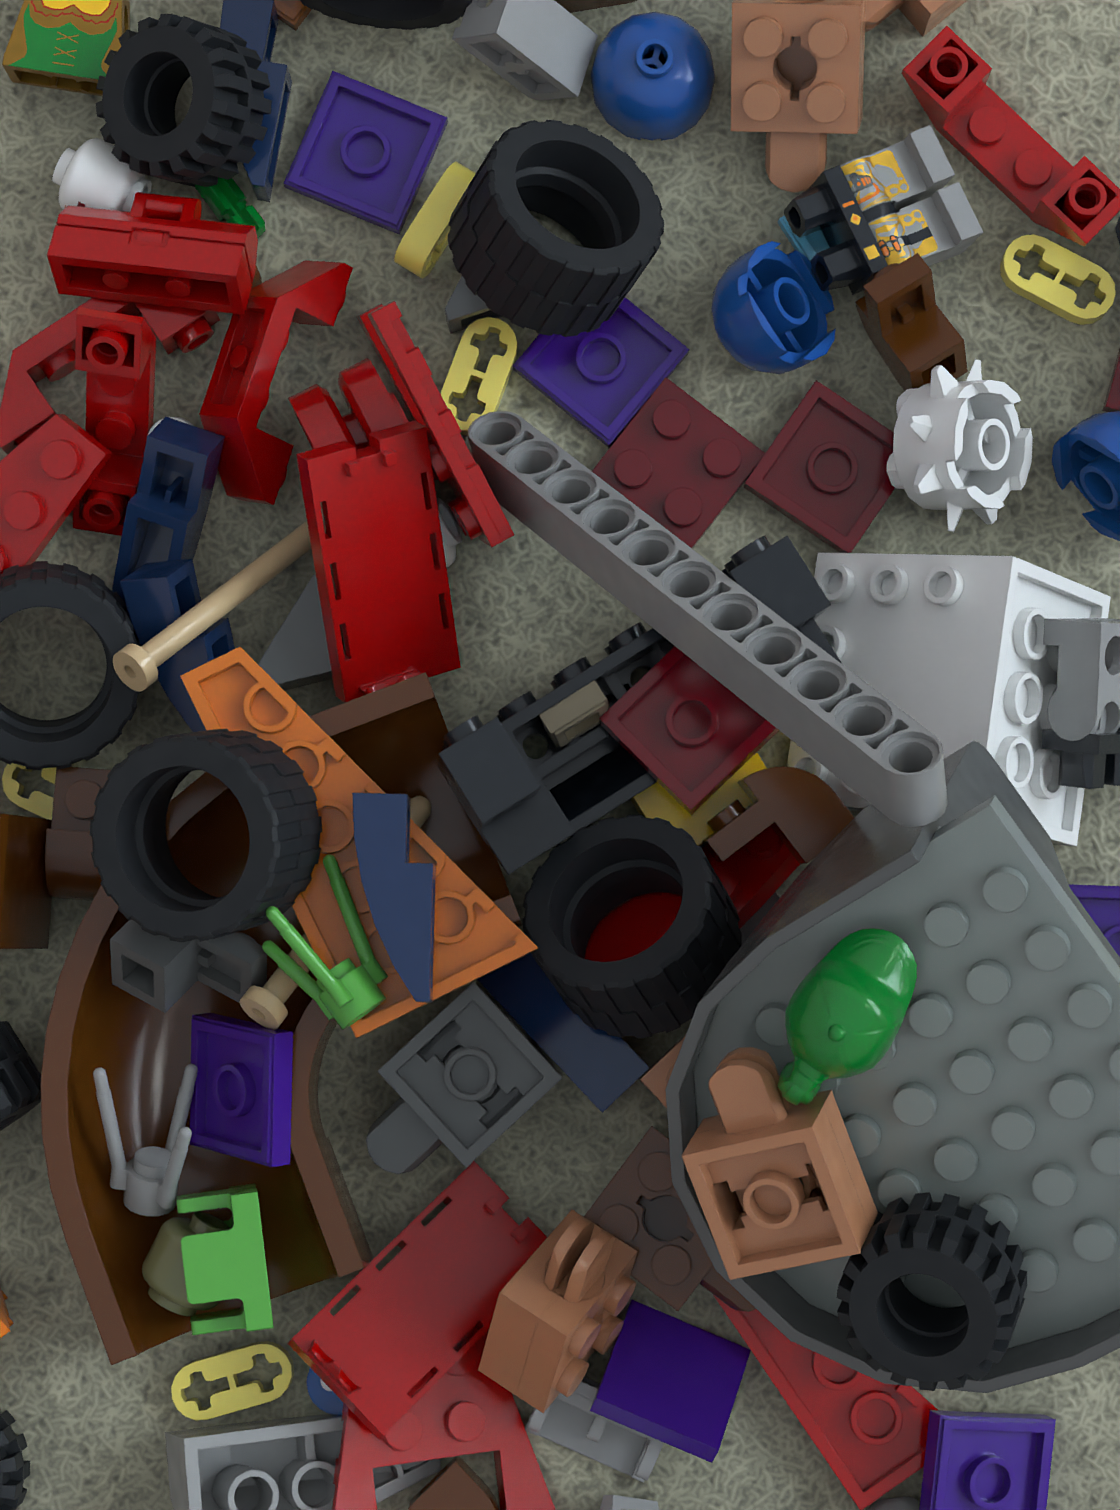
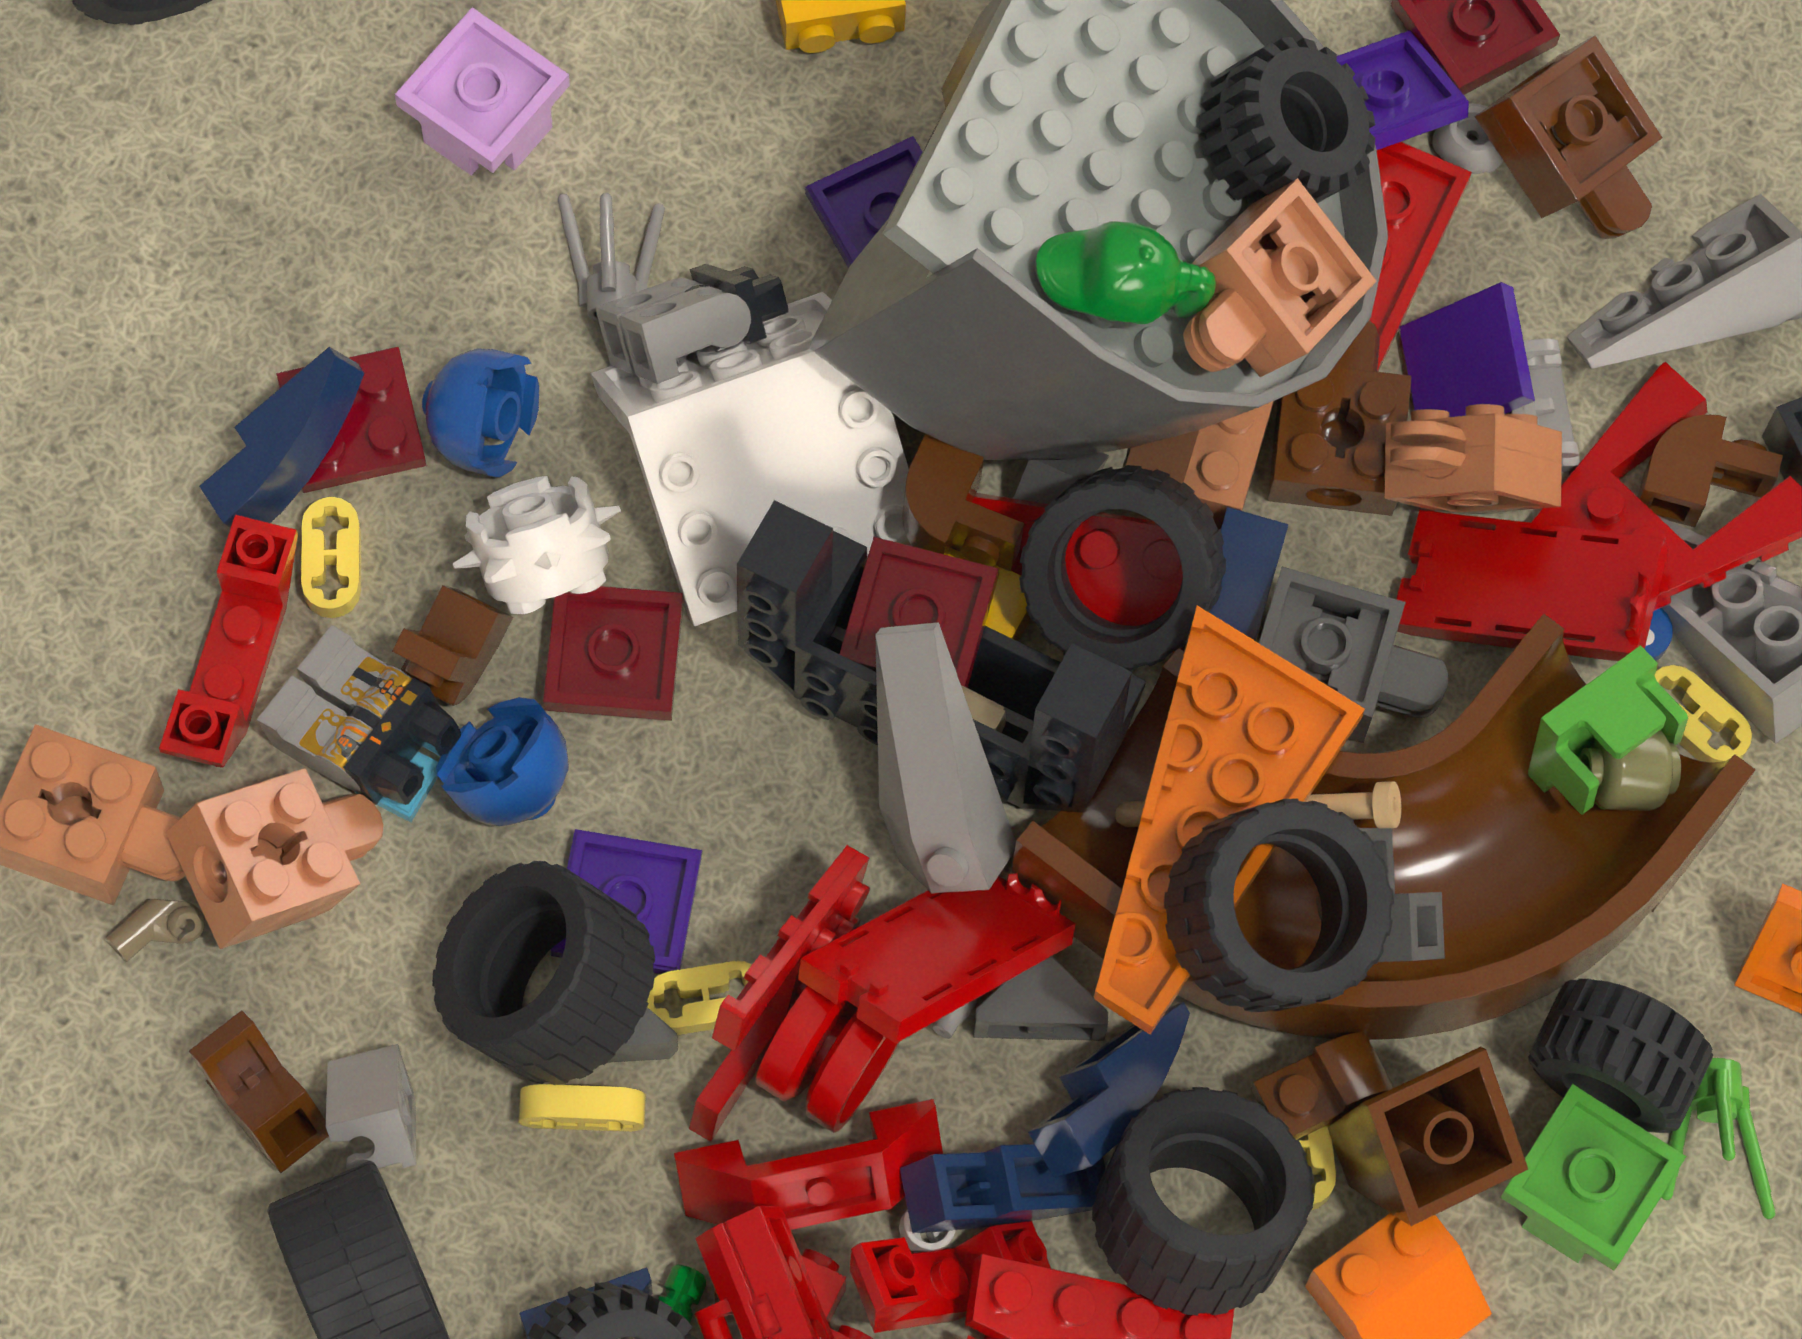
camera: 125 degrees left, 15 degrees down
(138, 665) = (1160, 1087): tan bar -> none
(154, 1172) = (1581, 844): light grey plant -> none
(242, 1089) = (1462, 805): dark purple tile -> none
(344, 990) = (1332, 732): bright green plant -> none
(365, 152) = (552, 1216): dark purple tile -> none
(397, 891) = (1221, 731): dark blue slope -> none
(531, 650) = (933, 767): none -> light grey wedge
(650, 100) = (340, 1020): blue cylinder -> none
(679, 462) = (686, 784): dark red plate -> none
(715, 622) = (853, 596): light grey beam -> none

